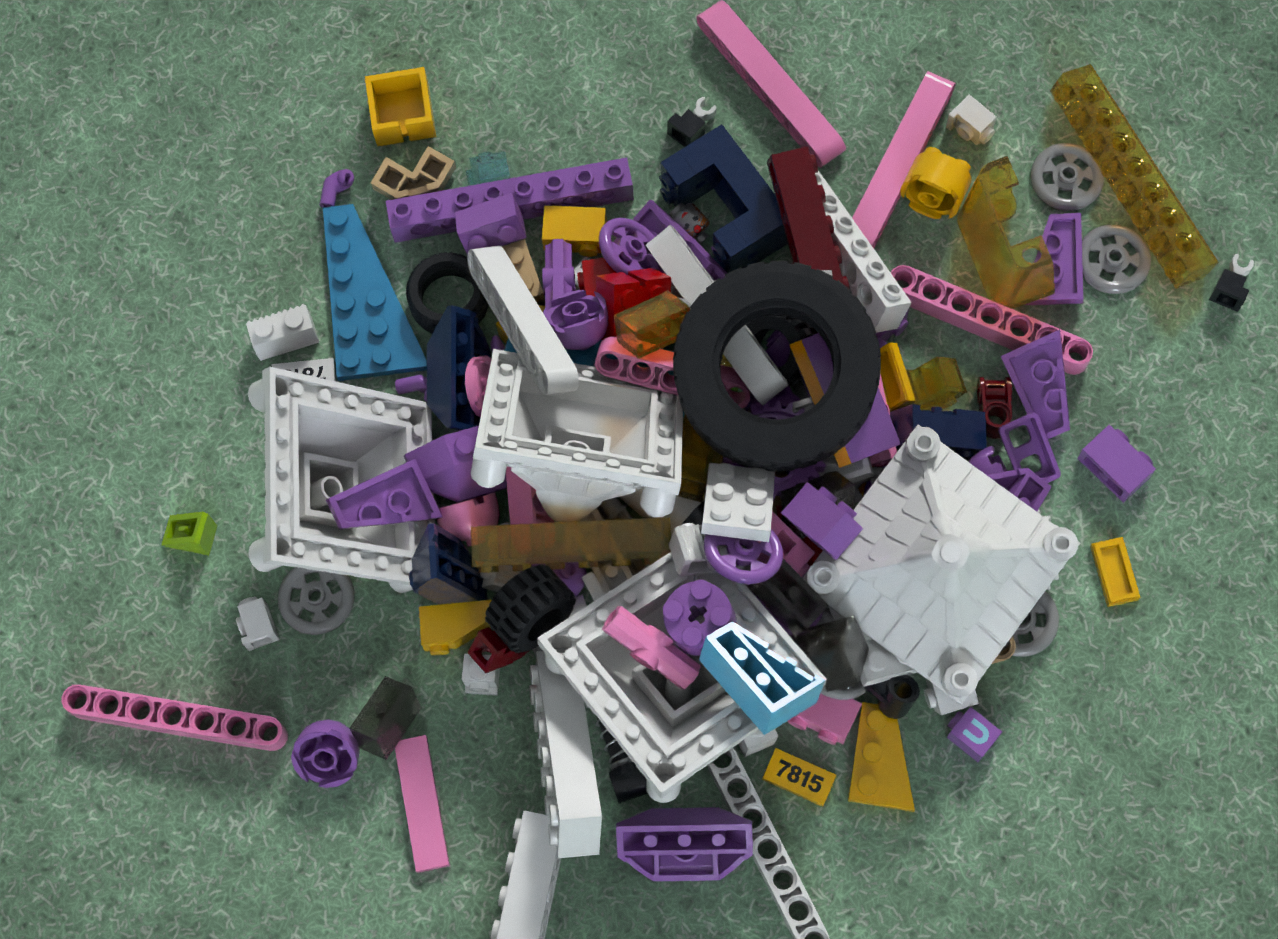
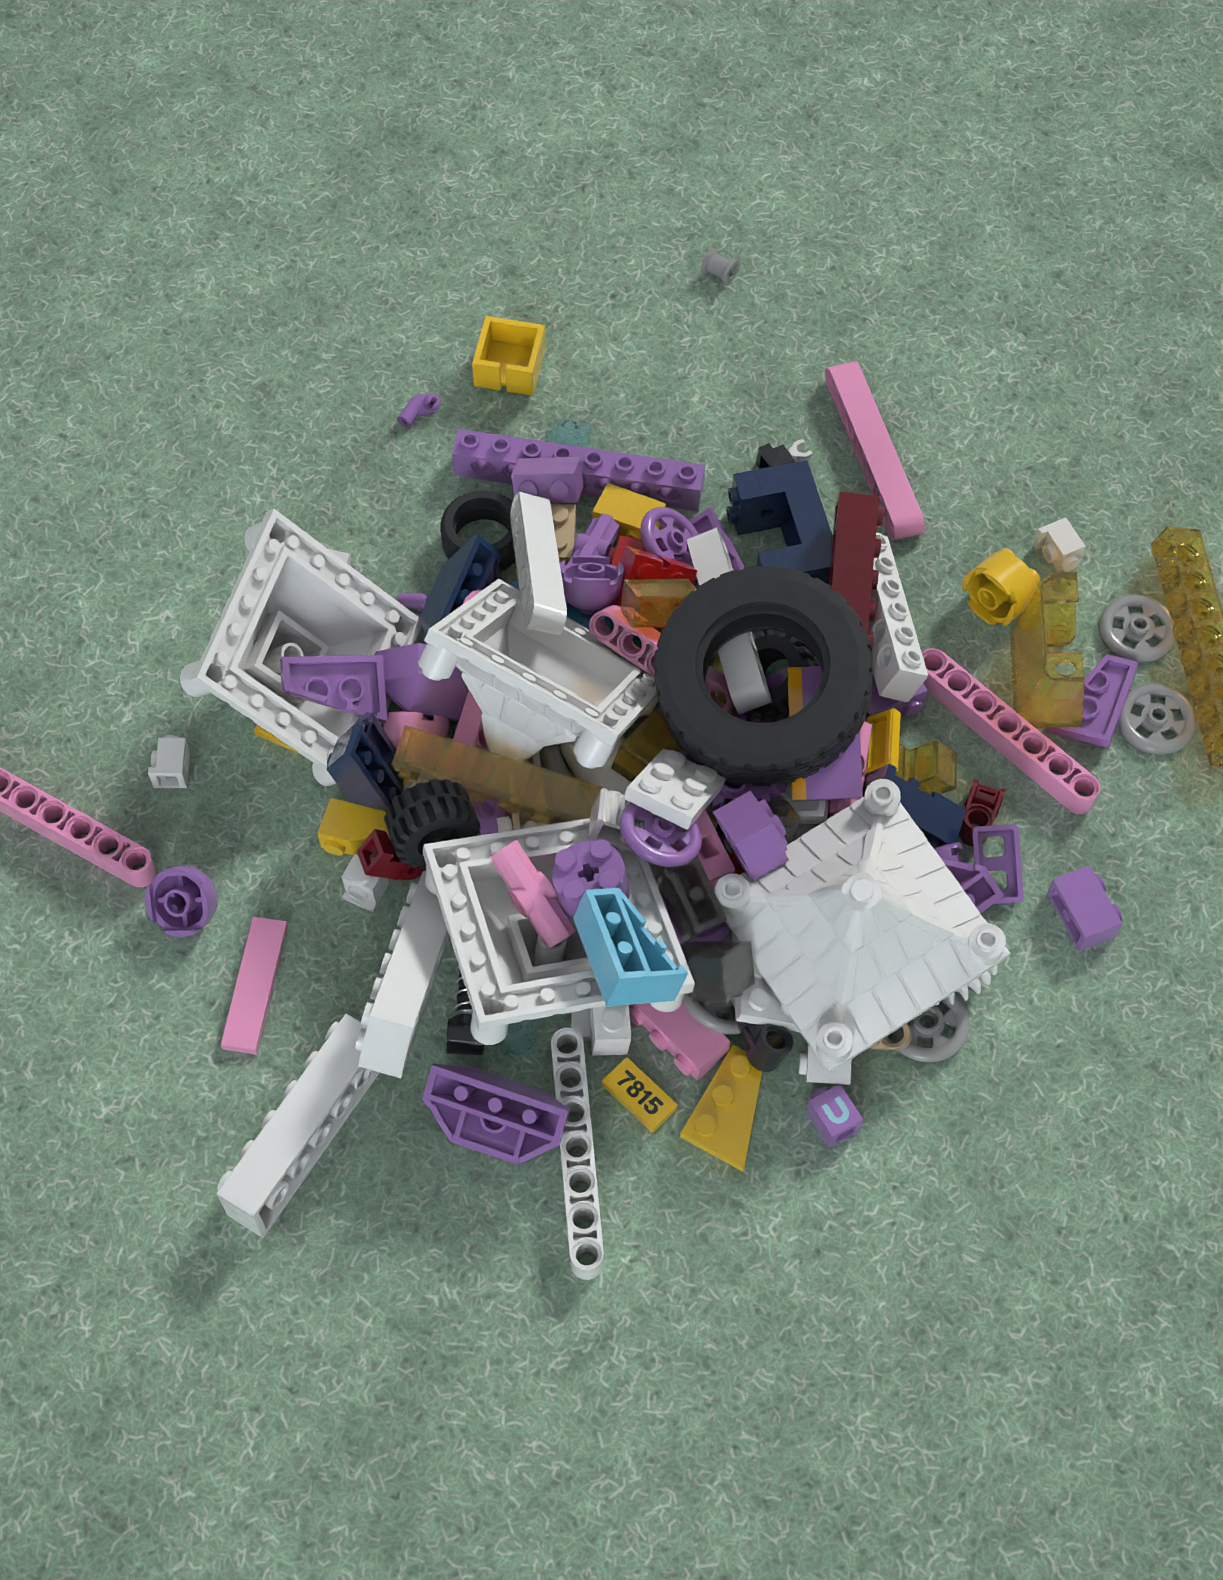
camera: 15 degrees right, 10 degrees down
(190, 532) = (148, 662): lime slope -> none
(282, 332) = (315, 512): white brick -> none
(320, 622) = (232, 784): light grey plate -> none
(367, 318) = (399, 526): dark azure wing -> none
(385, 717) = (253, 888): clear smoke brick -> none
(428, 176) = (511, 419): tan brick -> none
(691, 220) = (745, 543): flat silver head -> none
(906, 144) = (1005, 530): bright pink beam -> none
(1041, 382) = (1035, 802): medium lavender wing -> none
(1115, 571) = (1044, 1013): yellow tile -> none

